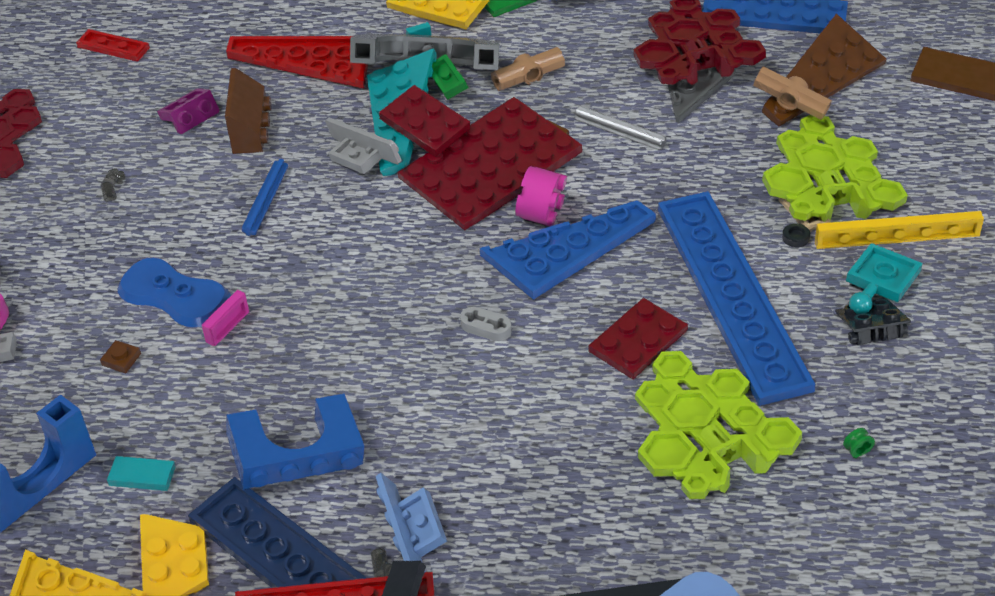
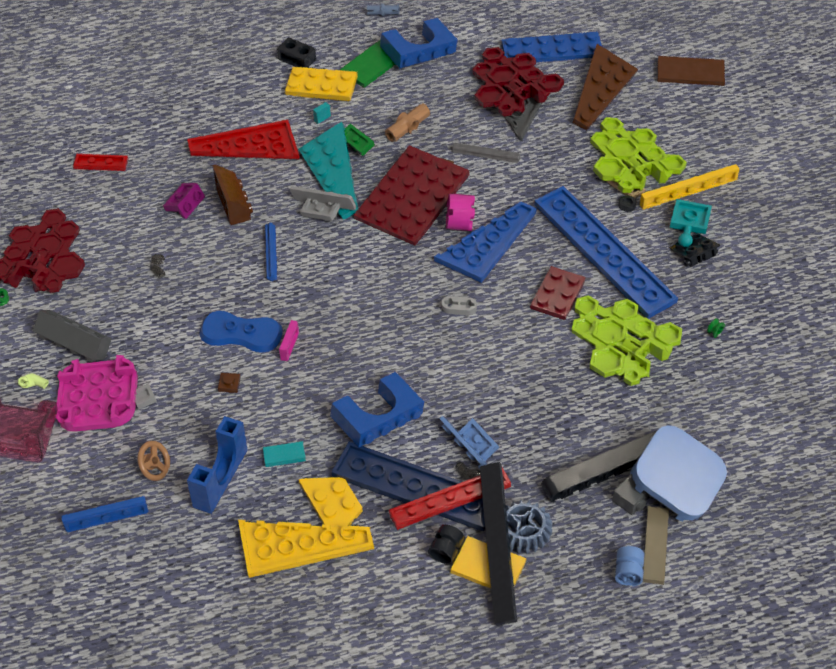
camera: 20 degrees left, 5 degrees up
(424, 120) = (359, 175): dark red plate -> none
(460, 50) = (304, 126): dark grey arch -> none
(792, 93) = (591, 106): medium nougat piece -> none

